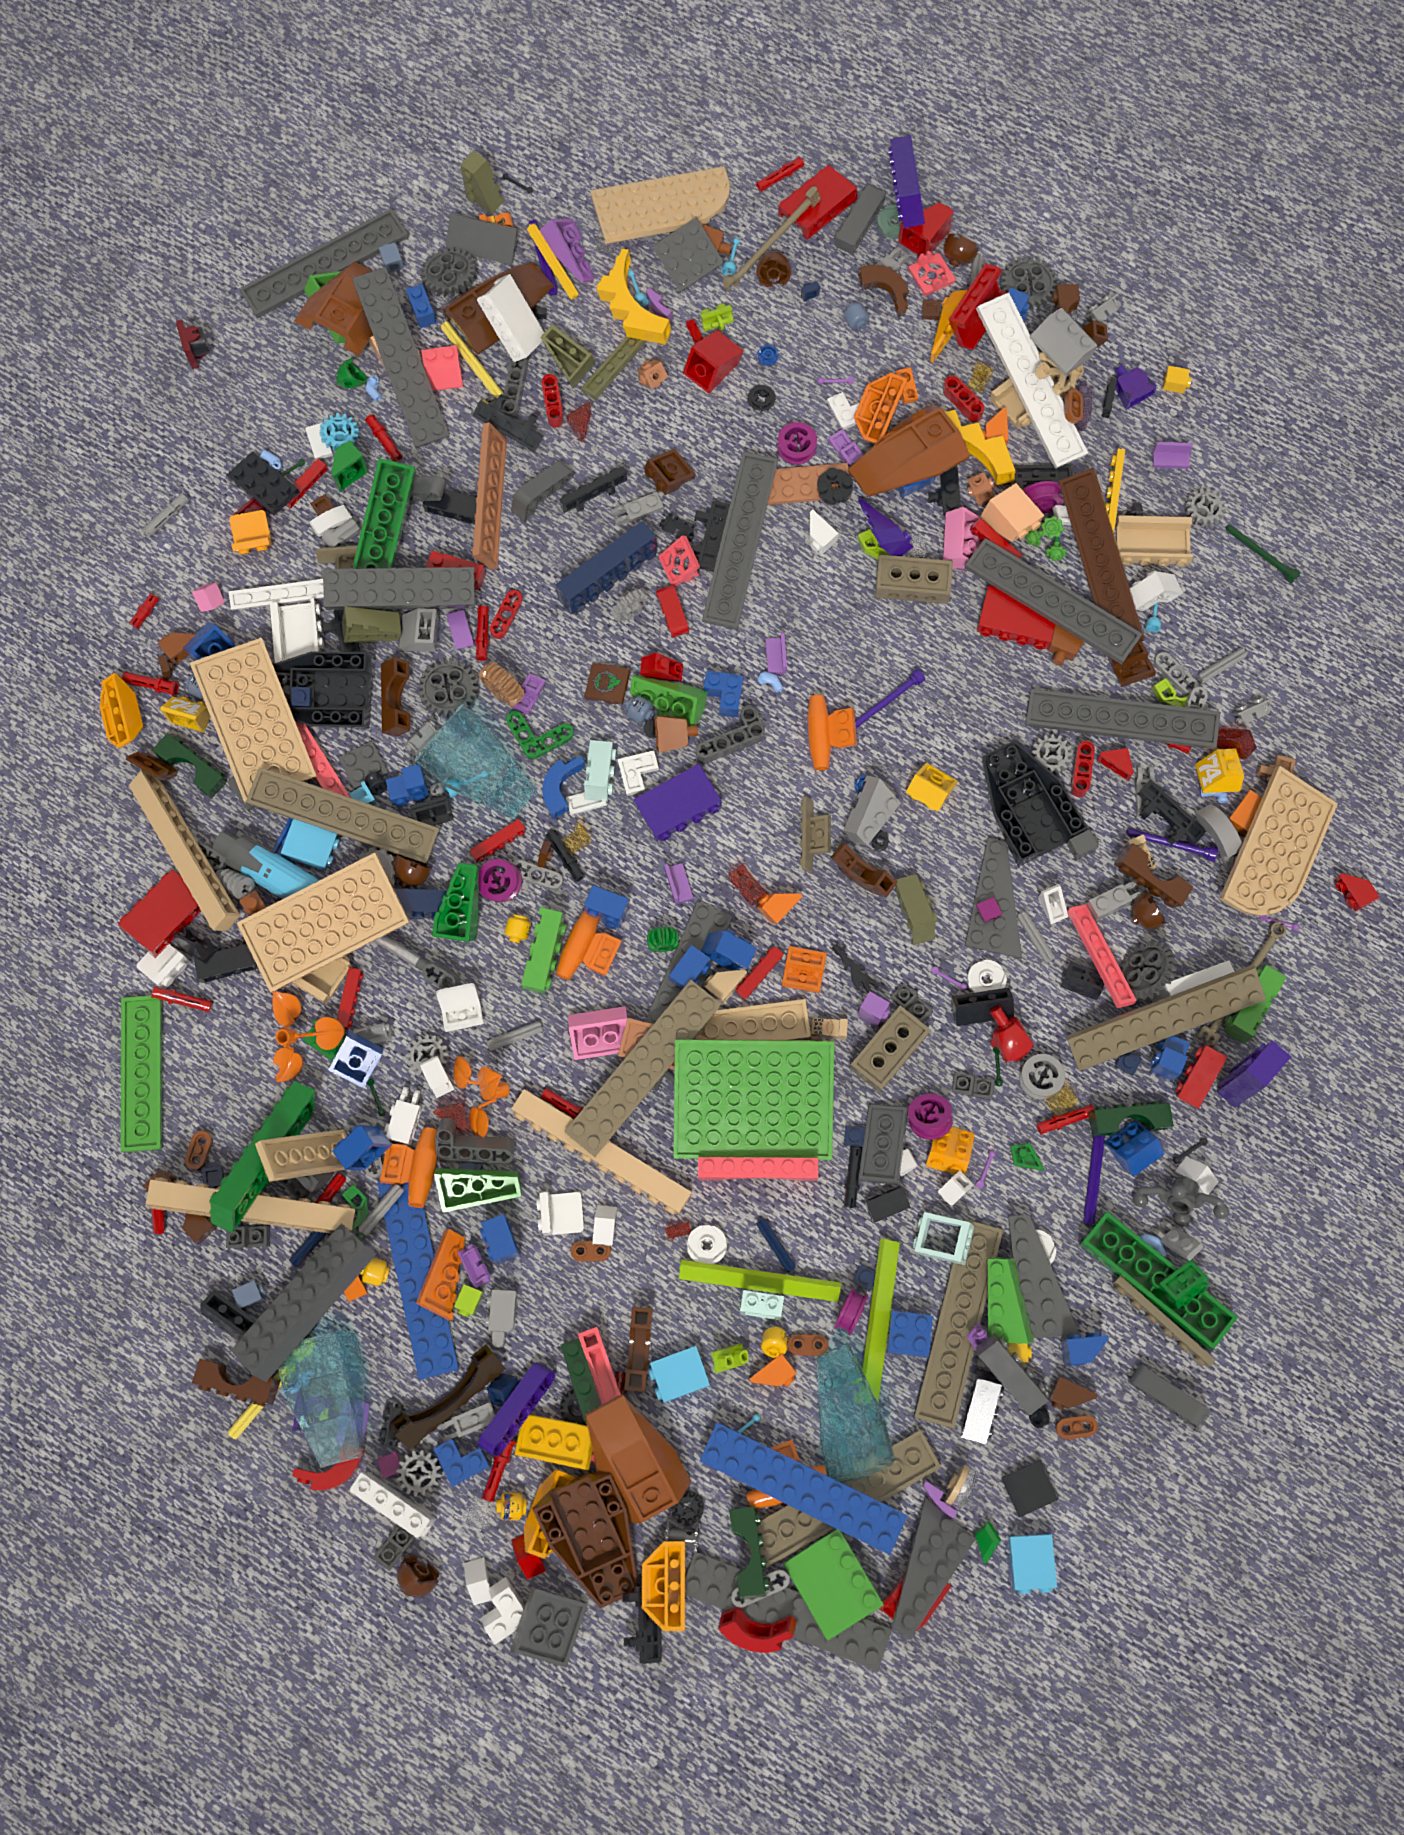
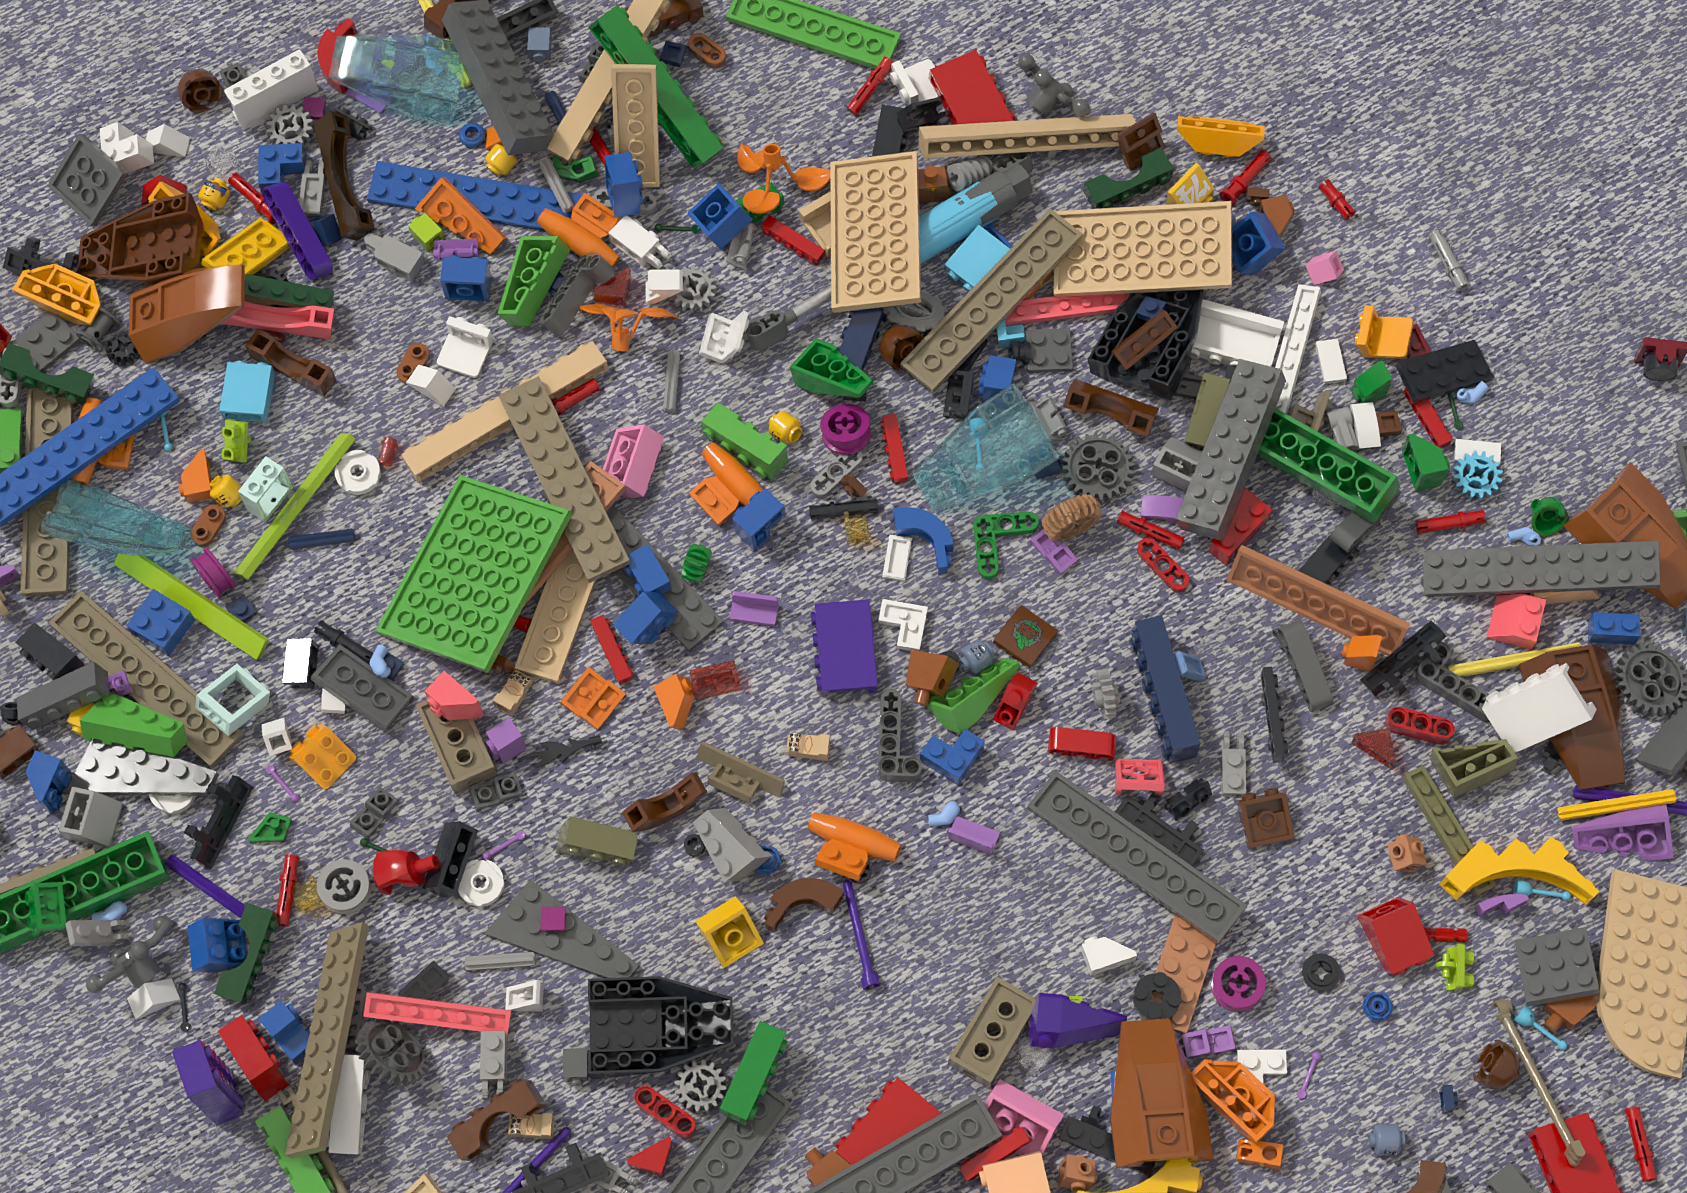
camera: 115 degrees right, 5 degrees down
(132, 854) = (1050, 91): none -> dark grey wheel
(286, 565) = (1330, 361): none -> white tile
(296, 524) = (1372, 384): none -> green slope
(331, 688) = (1144, 339): none -> reddish brown plate
(350, 1310) = (472, 143): none -> blue piece
(515, 452) = (1361, 651): none -> orange slope
(580, 559) = (1190, 666): none -> medium blue tile
(599, 770) = (922, 580): light aqua wedge -> none
(724, 984) = (614, 602): tan slope -> none
(757, 1168) = (403, 551): coral arch -> none
(765, 794) = (808, 746): none -> tan leg
(859, 1140) = (377, 662): none -> light blue arm
(871, 1054) = (452, 700): none -> coral slope
(880, 751) = (802, 891): none -> reddish brown arch
(933, 1123) = (374, 737): magenta wheel -> none
(1028, 715) = (753, 1072): none -> green wedge
(1029, 1198) = (211, 838): none -> black hinge
(1091, 1299) = (90, 817): none -> light grey slope
(1128, 1063) = (308, 989): dark blue plate -> none
(1146, 912) = (459, 1095): reddish brown cylinder -> none

